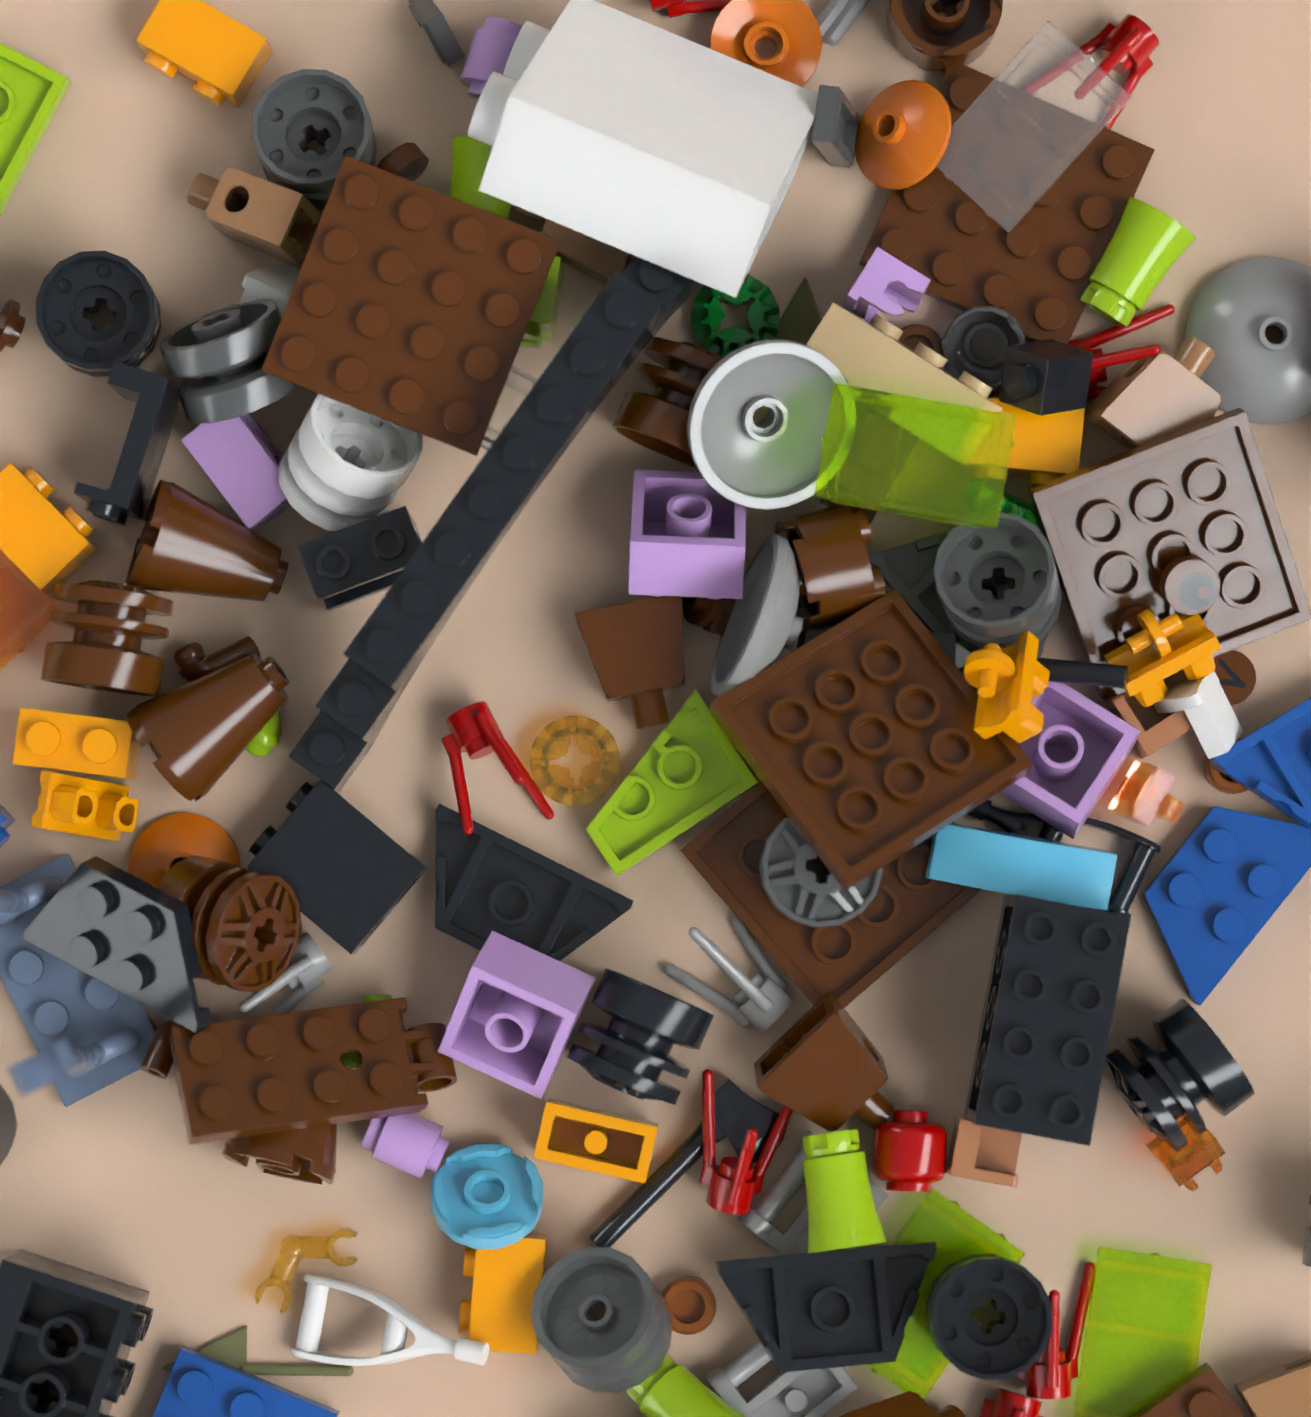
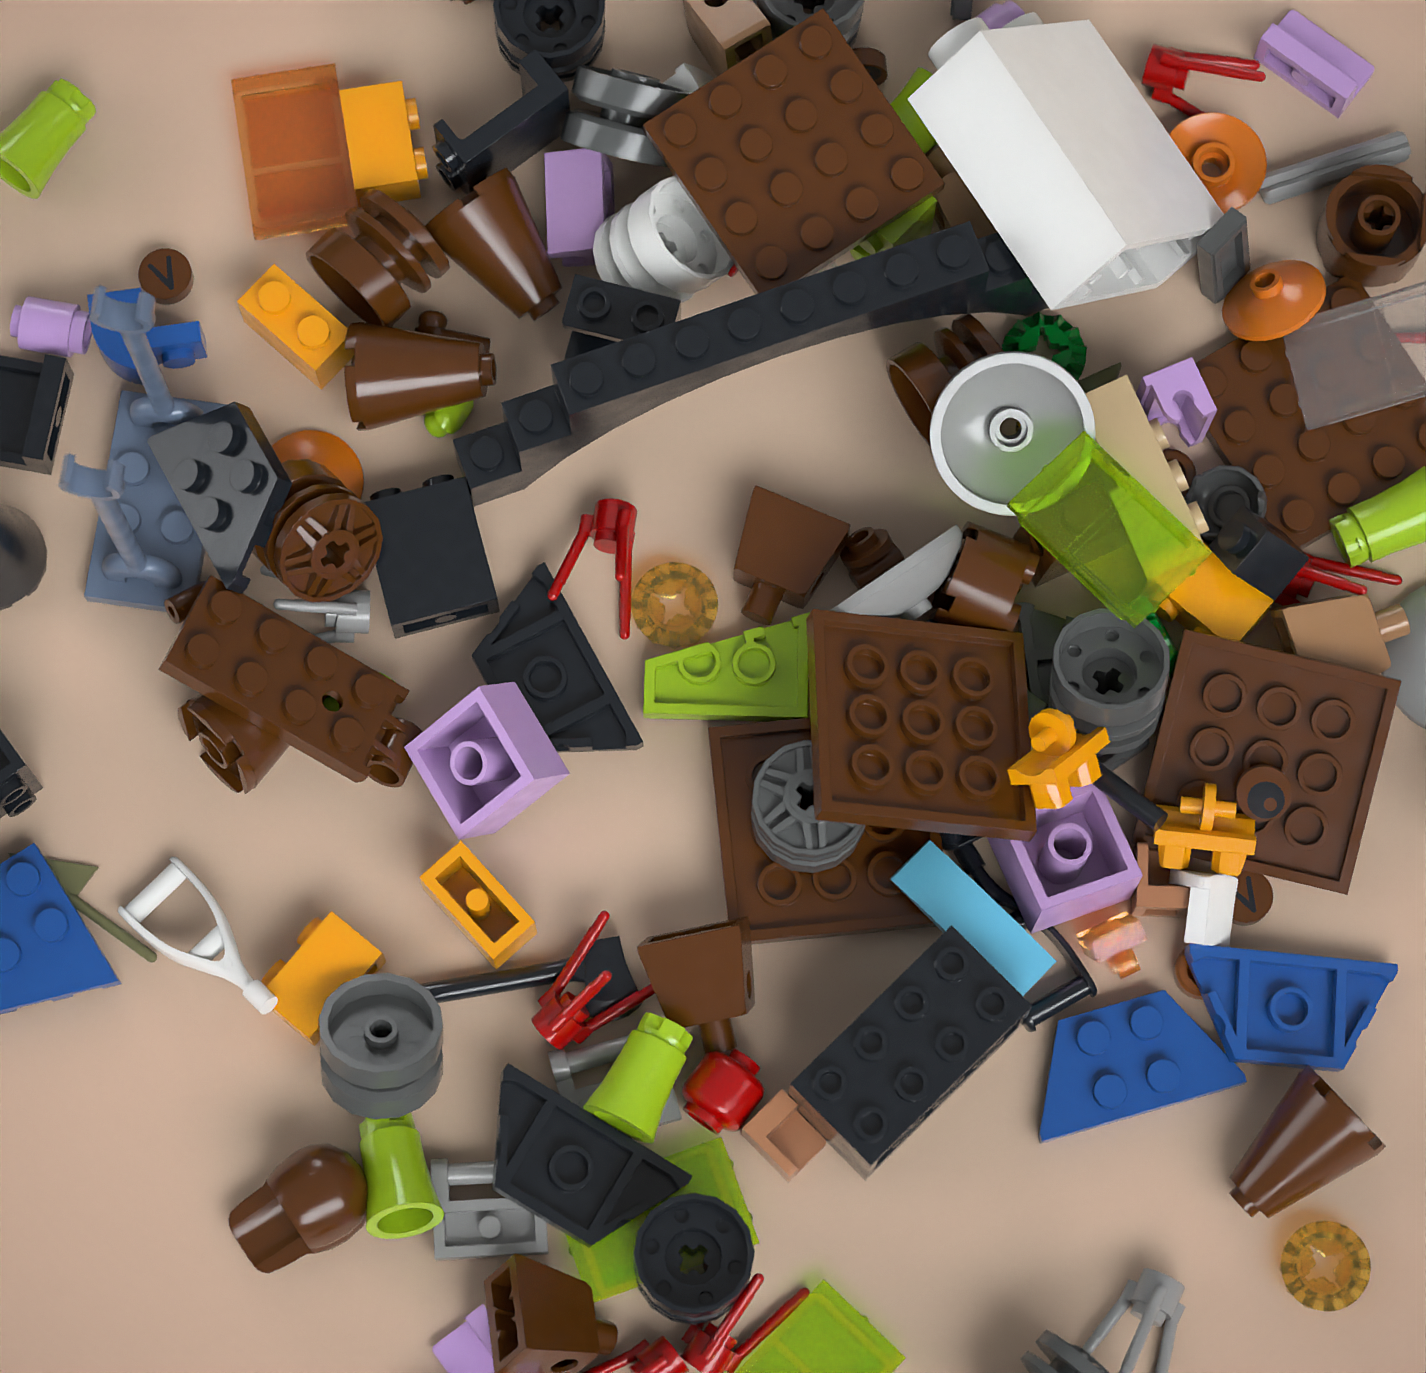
camera: 35 degrees right, 10 degrees down
(84, 806) = (267, 374): light orange hips -> none
(295, 1248) = (177, 831): clear yellow arm -> none
(406, 1143) = (328, 805): lavender brick -> none
(487, 1196) = (360, 890): medium azure tile -> none
(639, 1037) = (572, 845): black wheel -> none
(685, 538) = (883, 484): lavender brick -> none
(690, 1304) = (459, 1094): dark orange tile -> none
(760, 999) = (688, 889): light grey plant -> none
(1178, 1075) = (984, 1177): black wheel -> none
(1193, 1158) = (949, 1248): clear orange tile -> none

